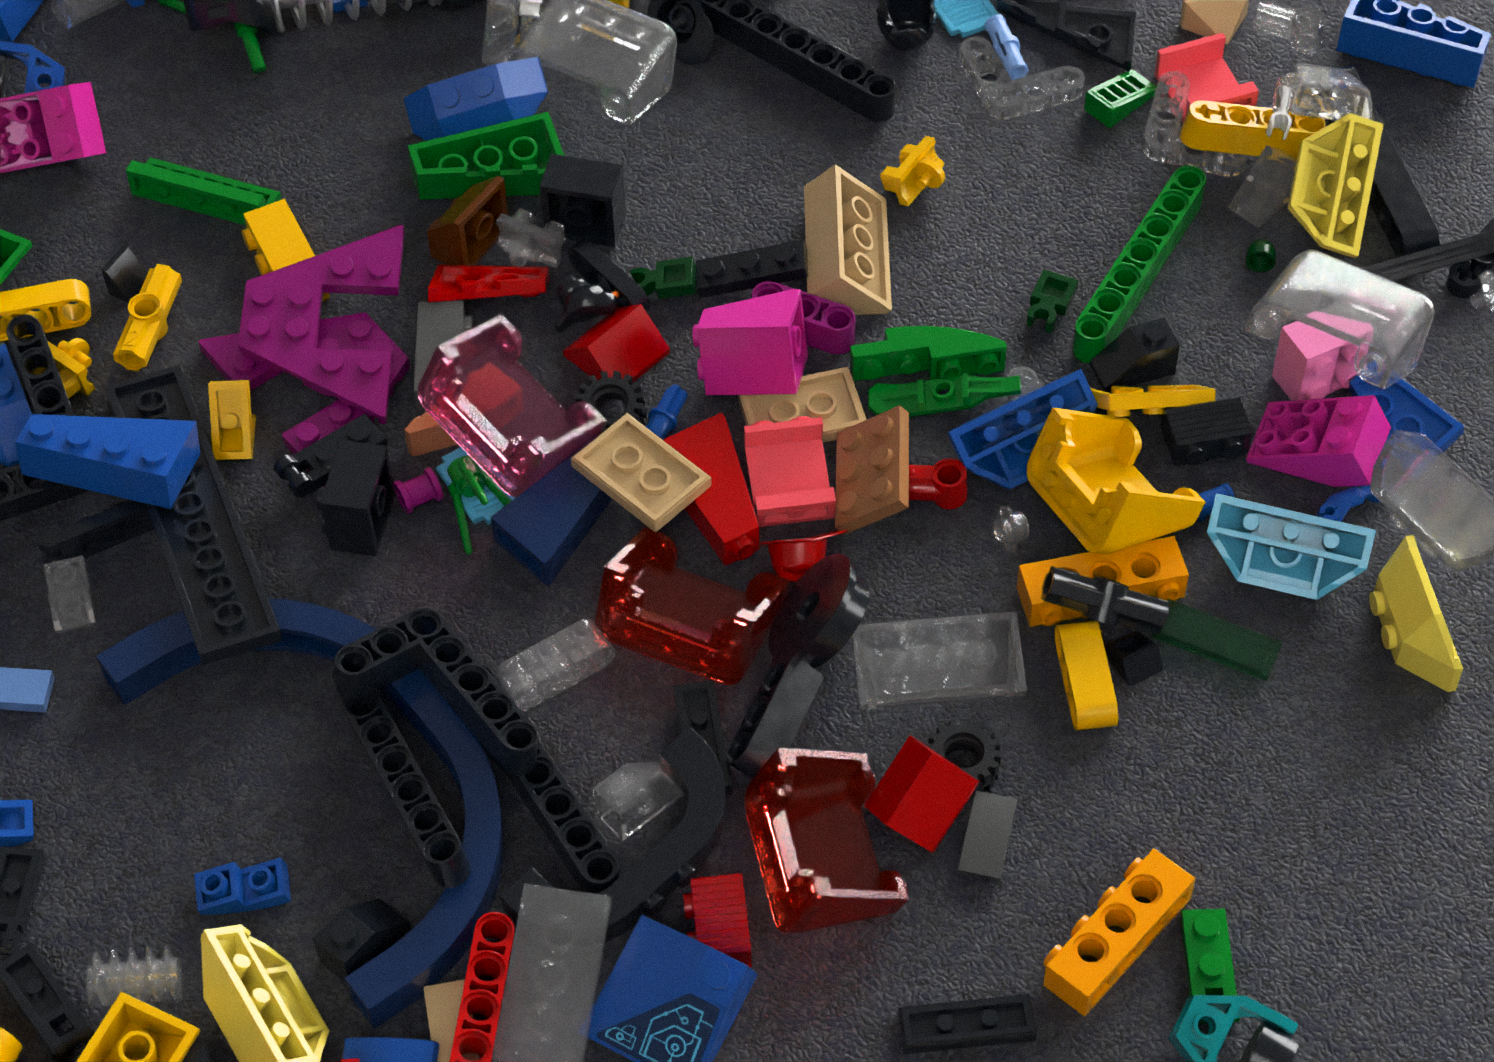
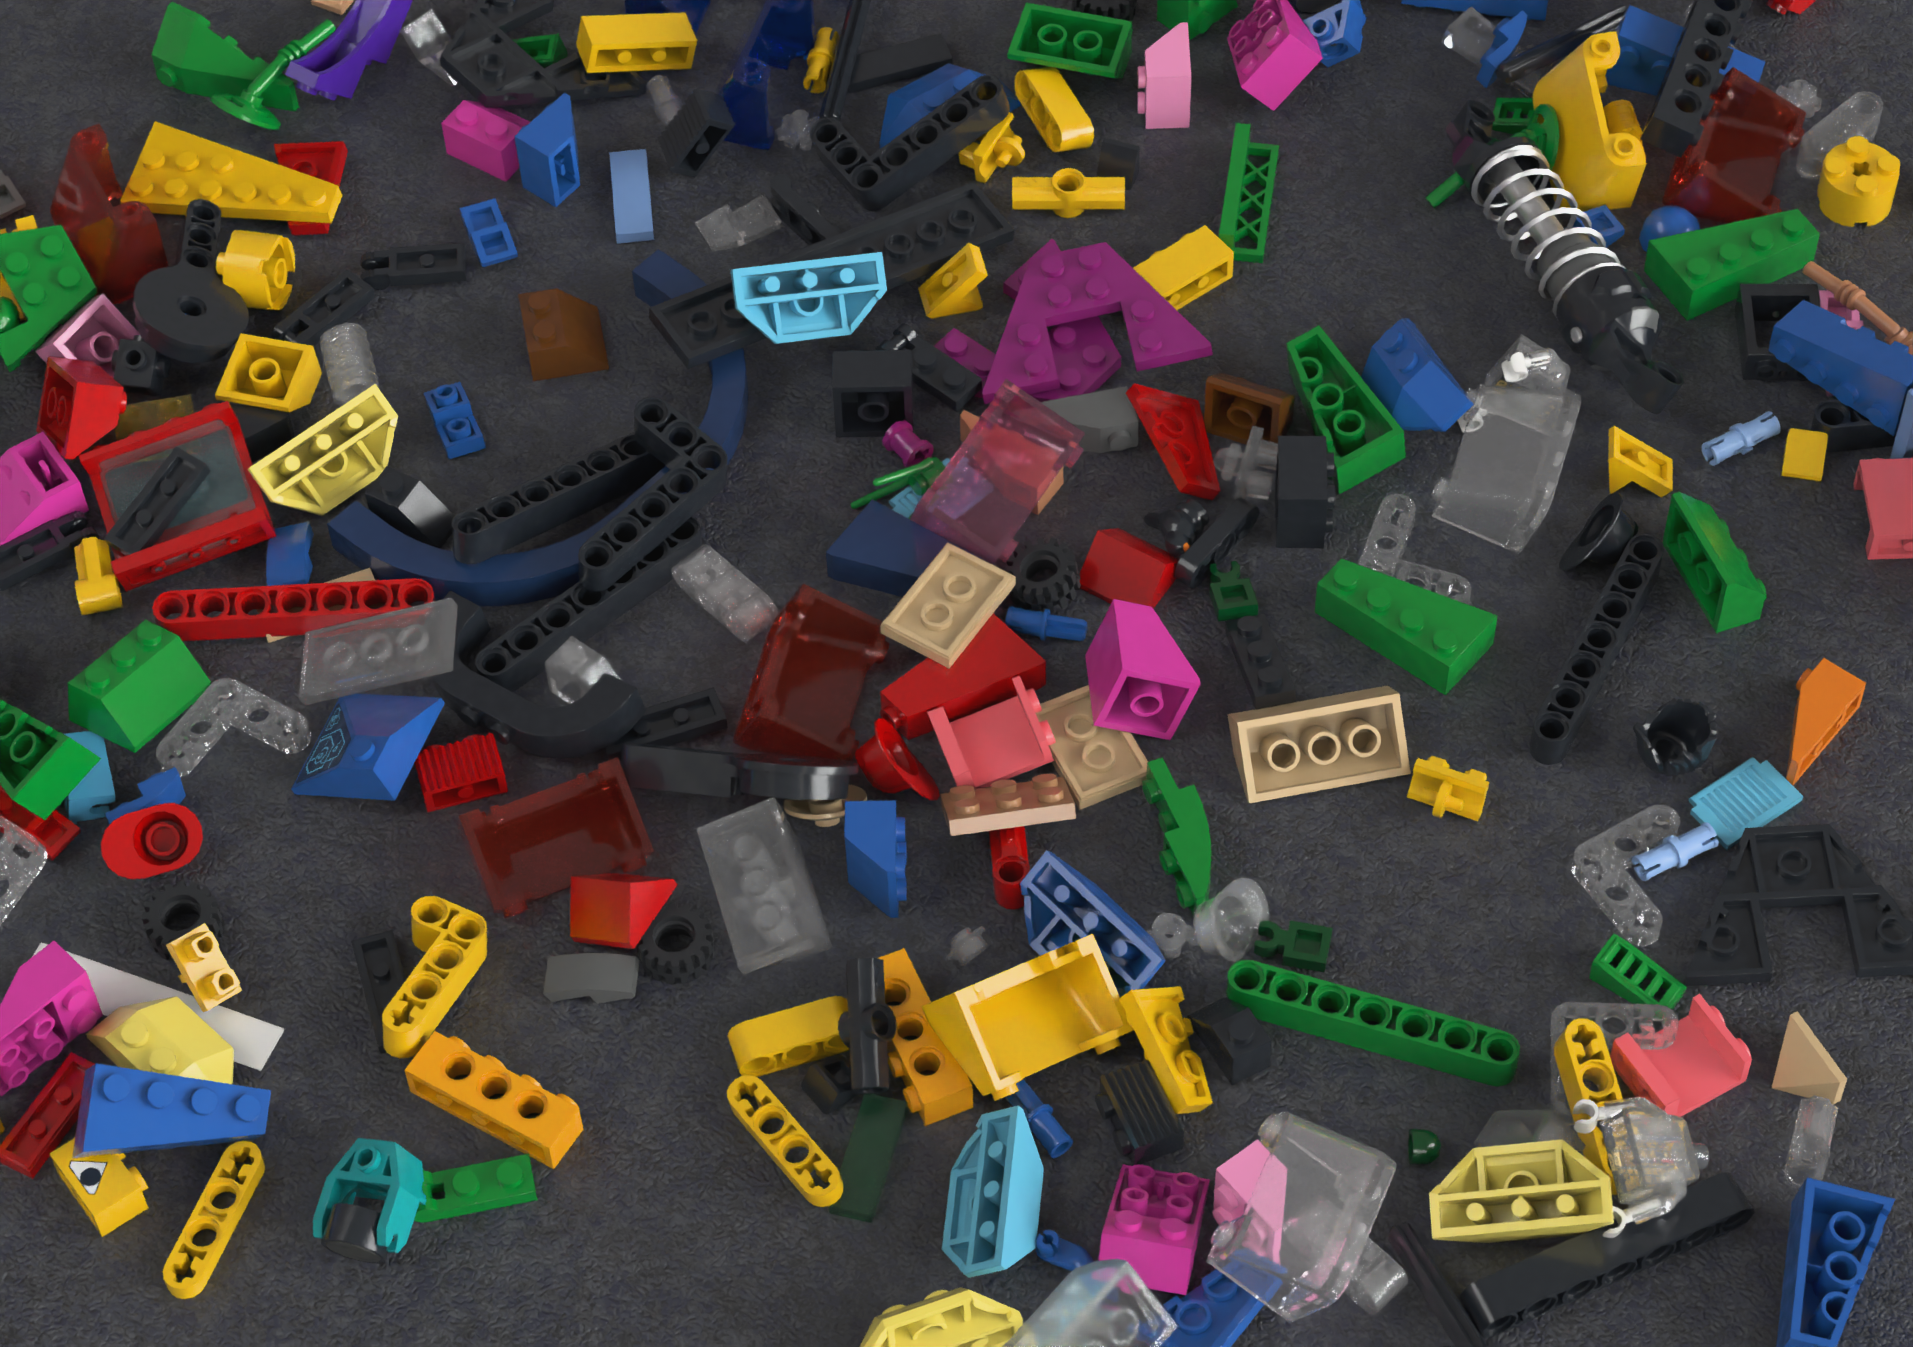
camera: 80 degrees right, 0 degrees up
(50, 207) = (1166, 81): none -> bright pink slope
(111, 455) = (862, 199): blue wedge -> none
(165, 774) = (562, 334): none -> reddish brown slope
(237, 506) = (809, 296): none -> medium azure wedge
(661, 168) = (1389, 560): none -> clear beam
(739, 164) = (1406, 623): none -> green wedge
(827, 323) = (1201, 735): magenta beam -> none
(913, 572) = (876, 853): none -> blue slope
(922, 396) = (1131, 841): green piece -> none
(1027, 344) = (1230, 920): none -> clear piece
(1028, 989) = (454, 952): none -> yellow beam
(1201, 702) = (787, 1138): none -> yellow beam

